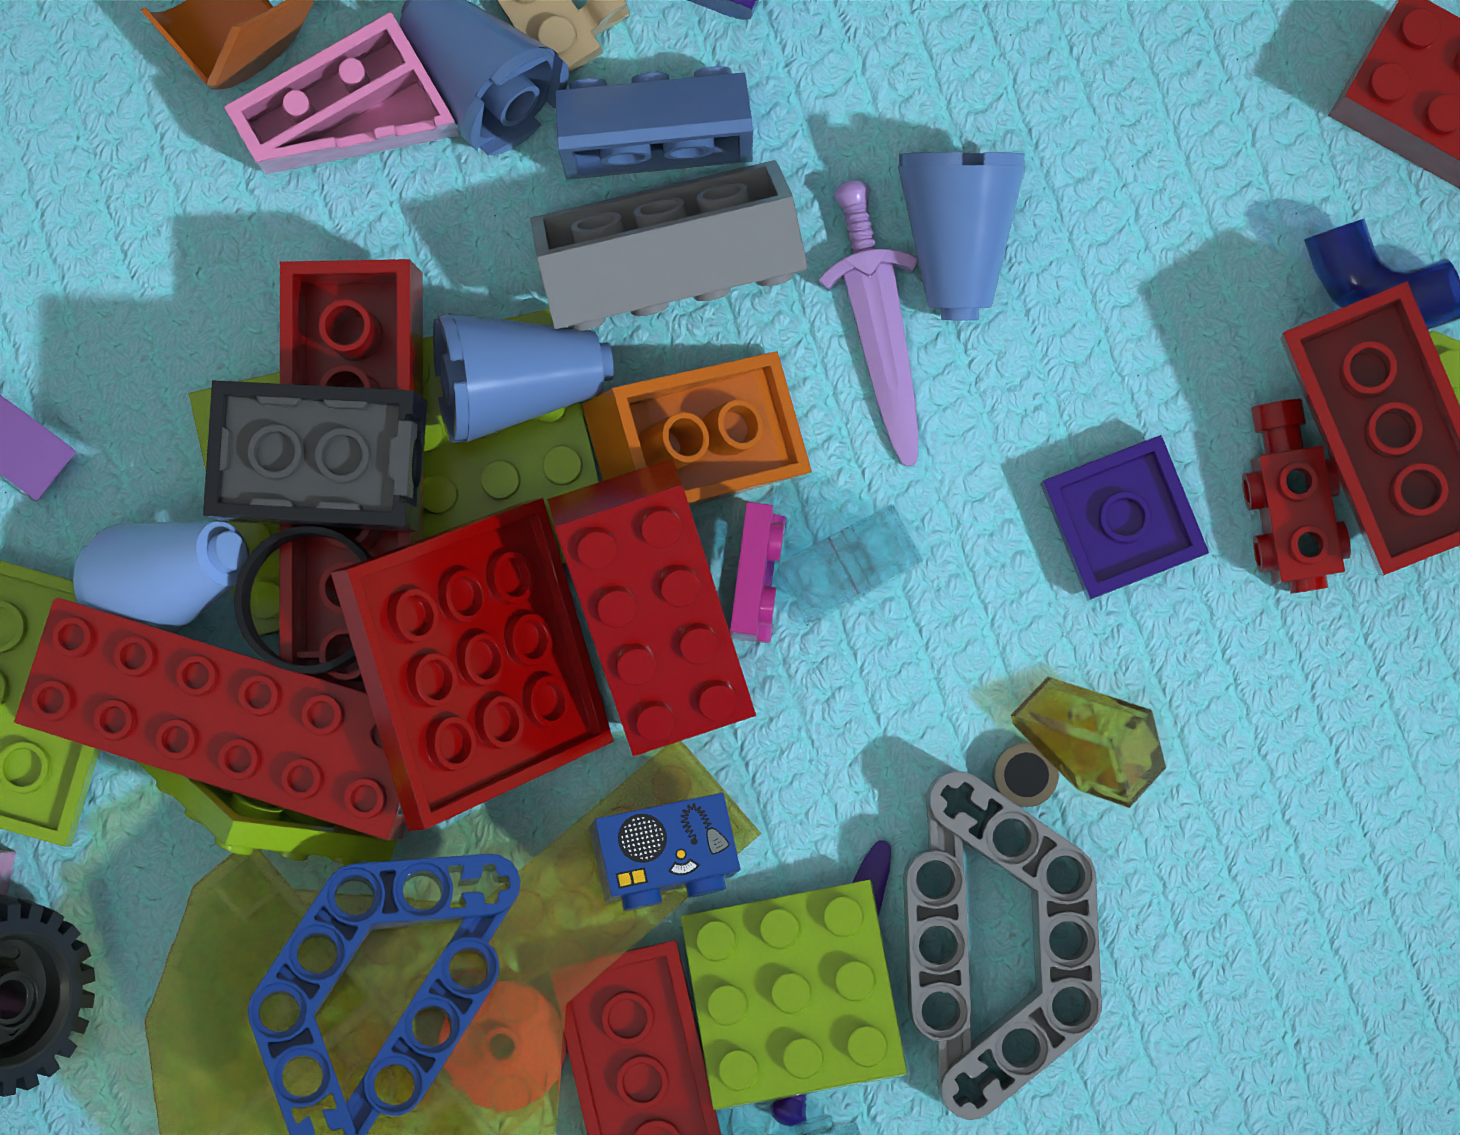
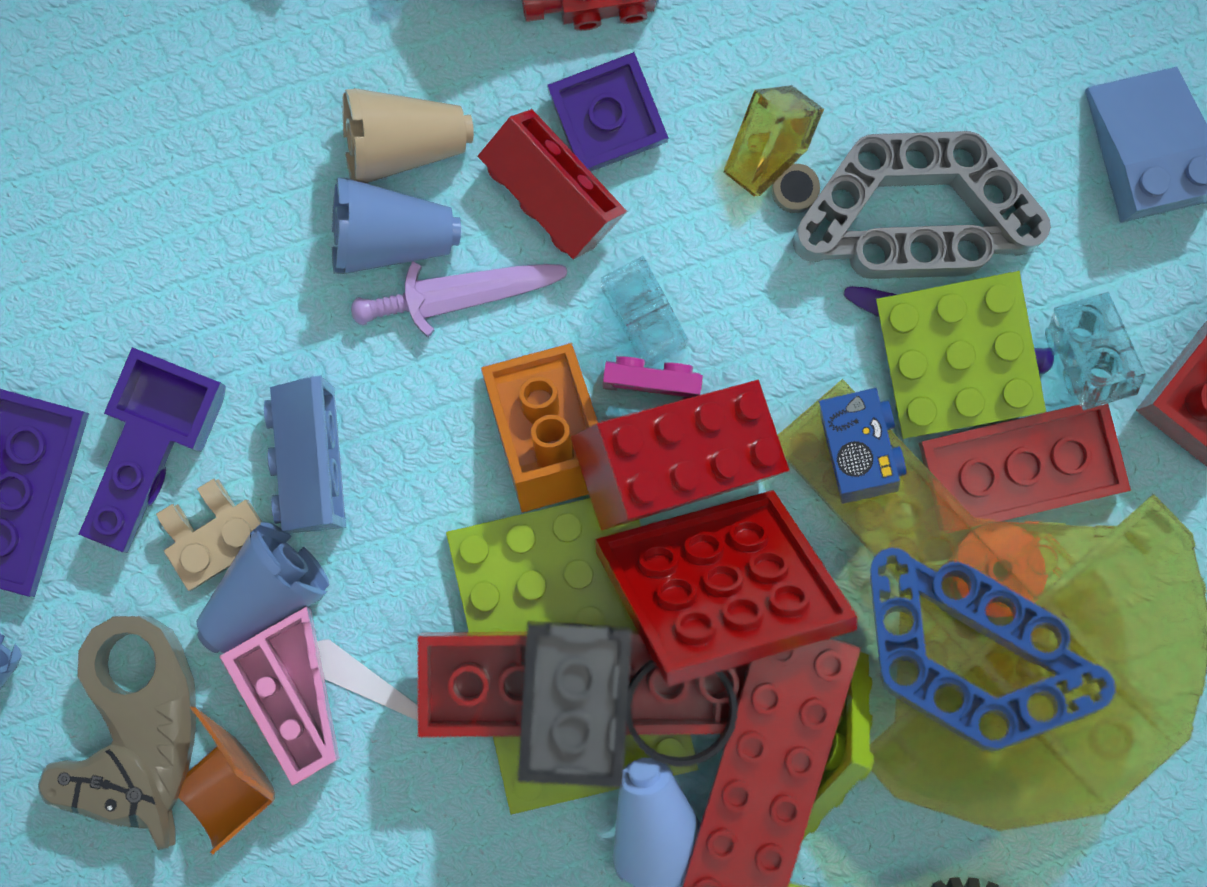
camera: 95 degrees left, 0 degrees up
(375, 187) = (351, 674): none -> white sticker
(512, 371) = (501, 562): medium blue cone -> none
(668, 245) = (403, 443): light grey brick -> none
(1024, 440) = (551, 183): none -> red brick
(1090, 240) = (399, 133): none -> tan cone

